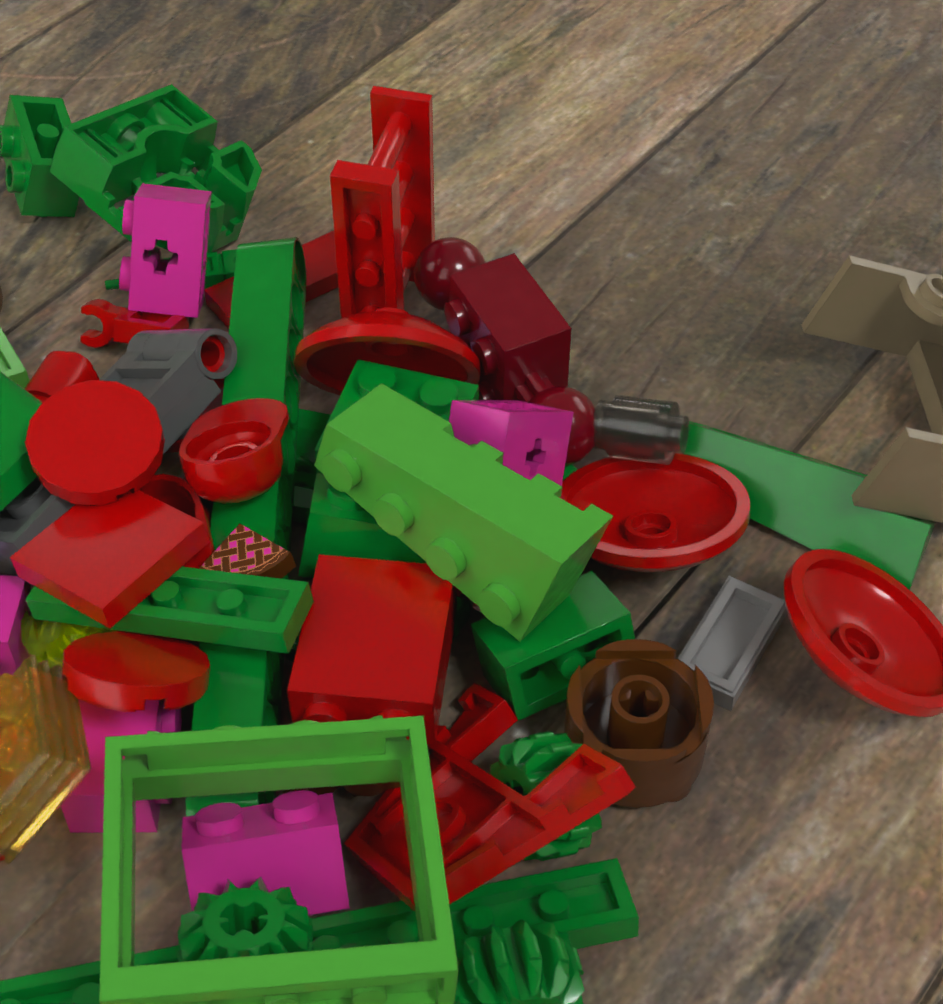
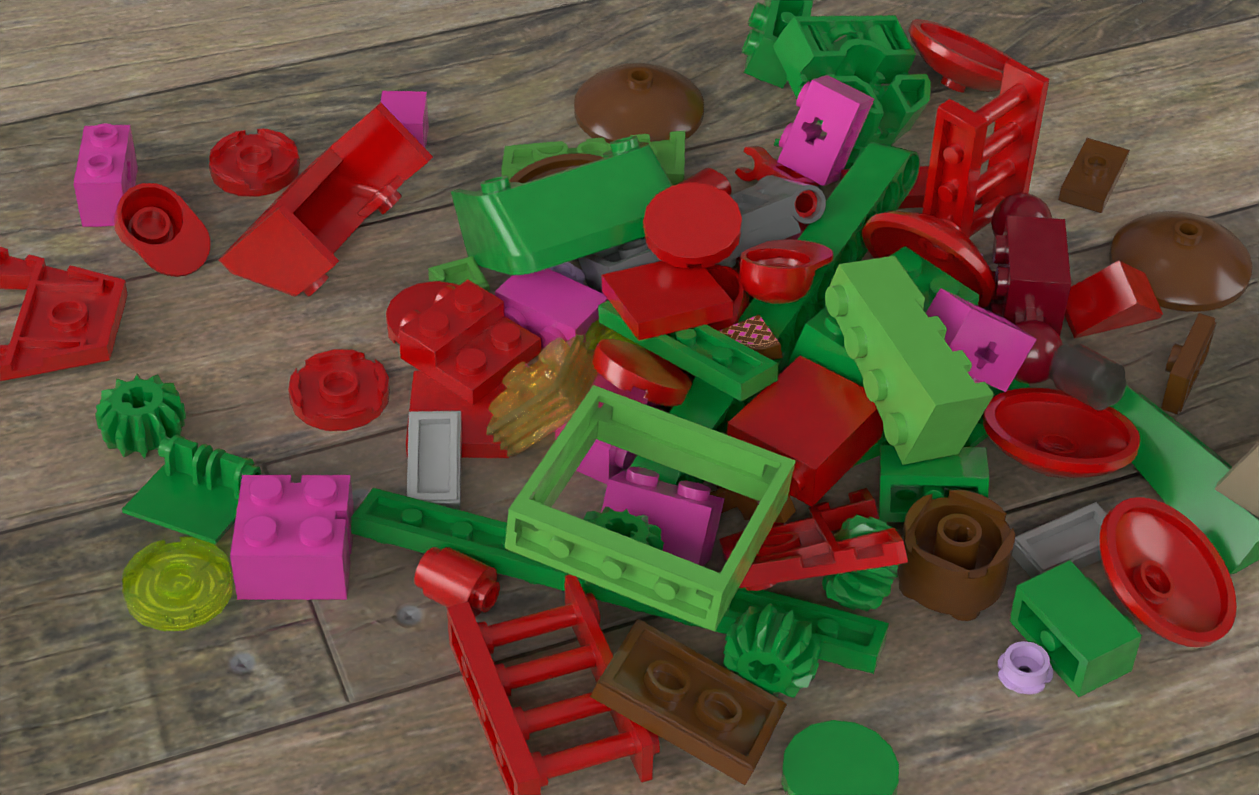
camera: 30 degrees right, 5 degrees down
(266, 108) = (958, 57): none -> red dish
(475, 188) = (1094, 175): none -> reddish brown plate
(598, 323) = (1111, 300): none -> red slope
(620, 250) = (1186, 259): none -> reddish brown dish
(713, 365) = (1186, 362): none -> reddish brown plate
(795, 816) = (1025, 668): none -> lavender plate
(822, 753) = (1076, 627): none -> green brick

